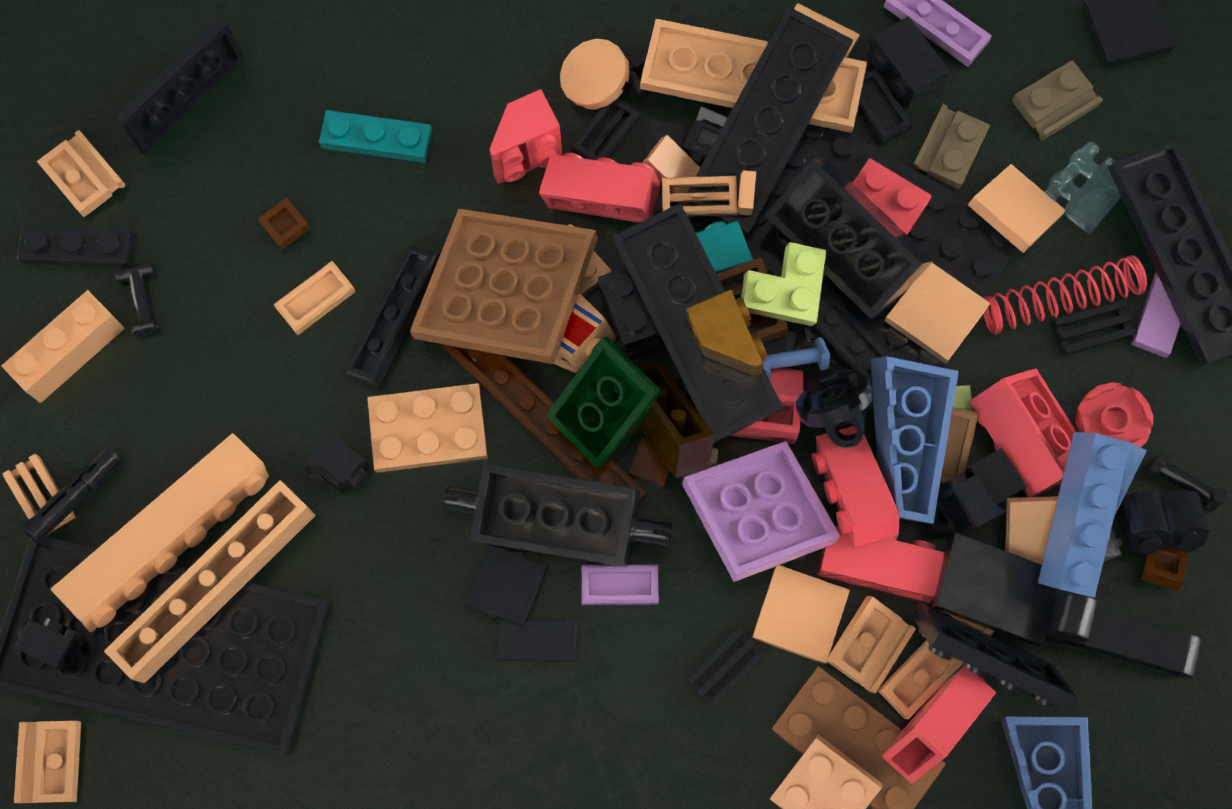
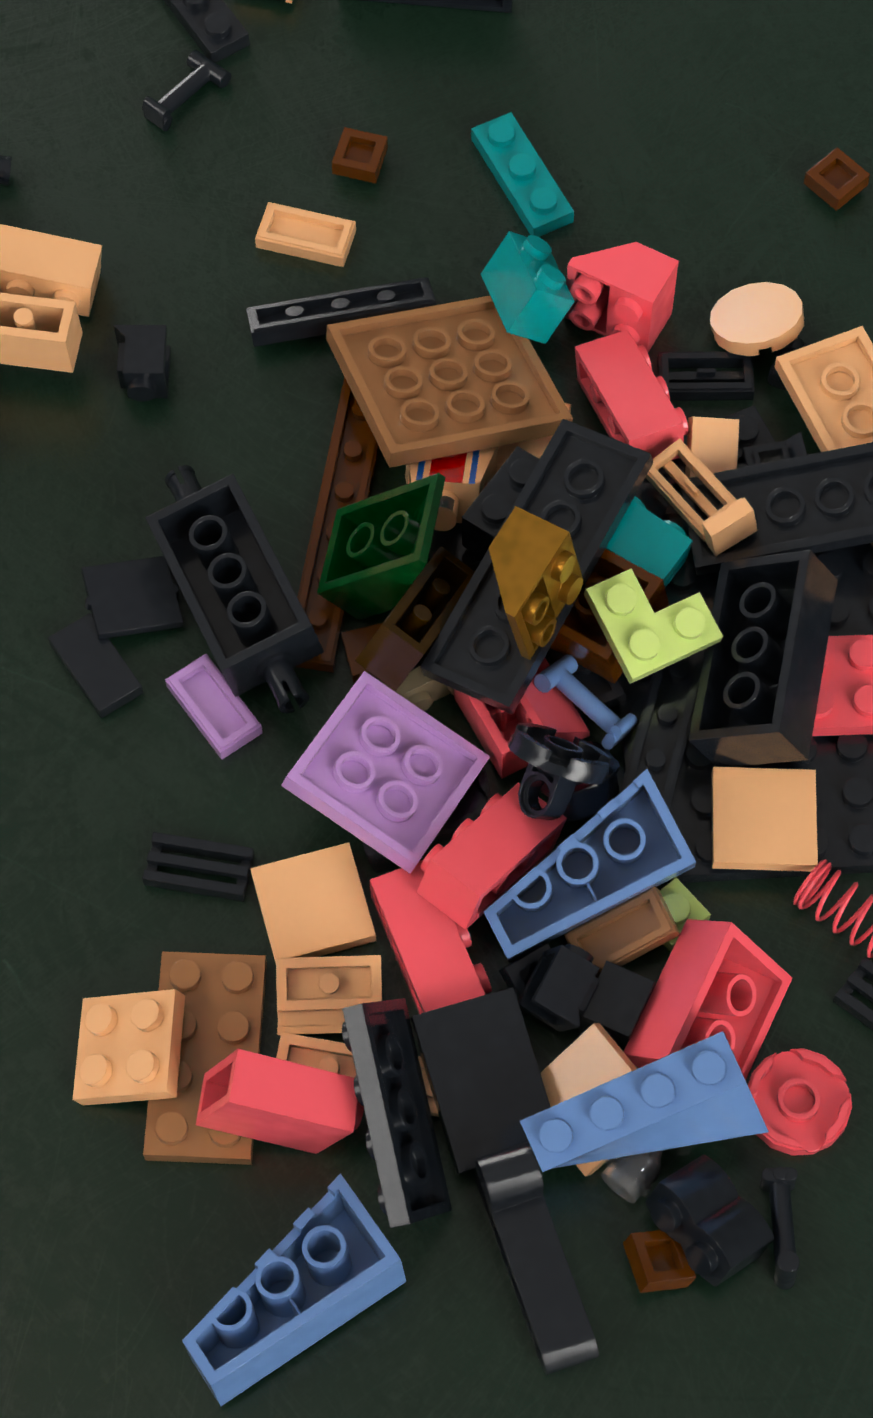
camera: 55 degrees right, 10 degrees down
(63, 347) = (83, 56): light nougat brick -> none
(427, 428) = (247, 420): light nougat plate -> none
(474, 191) = (527, 287): none -> teal brick

